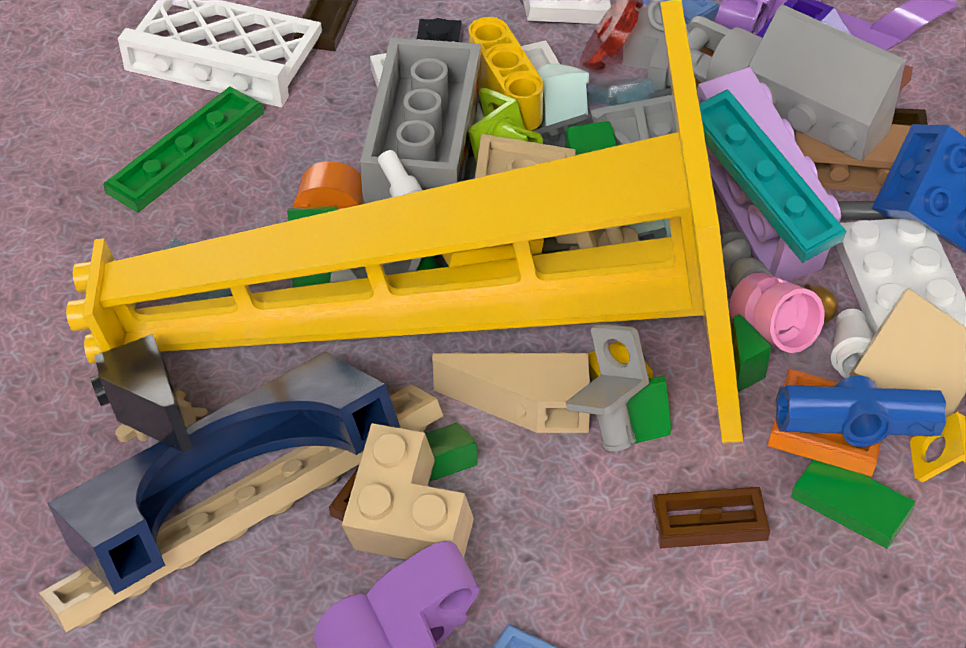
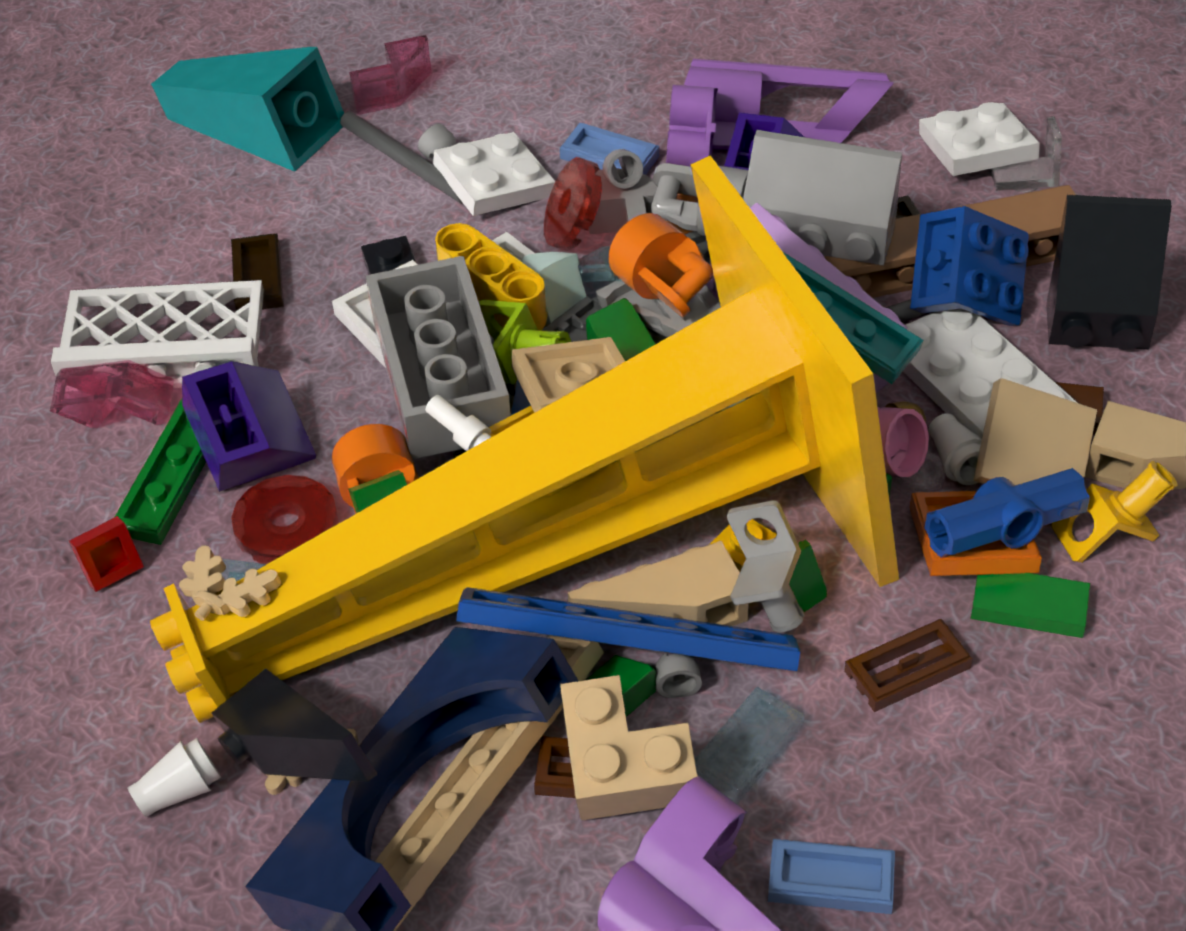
camera: 20 degrees left, 0 degrees up
(49, 399) = (175, 778): none -> white cone
(86, 204) = (106, 553): none -> red tile
(143, 261) = (207, 580): none -> tan animal
(166, 74) = (93, 391): none -> clear pink slope
(236, 203) = (277, 497): none -> clear red tile
(246, 132) = (244, 422): none -> dark purple slope
(472, 402) = (628, 628): none -> blue tile
(489, 454) = (681, 685): none -> light grey hinge
(530, 536) = (748, 744): none -> clear light blue tile
(642, 93) = (659, 261): none -> orange piece

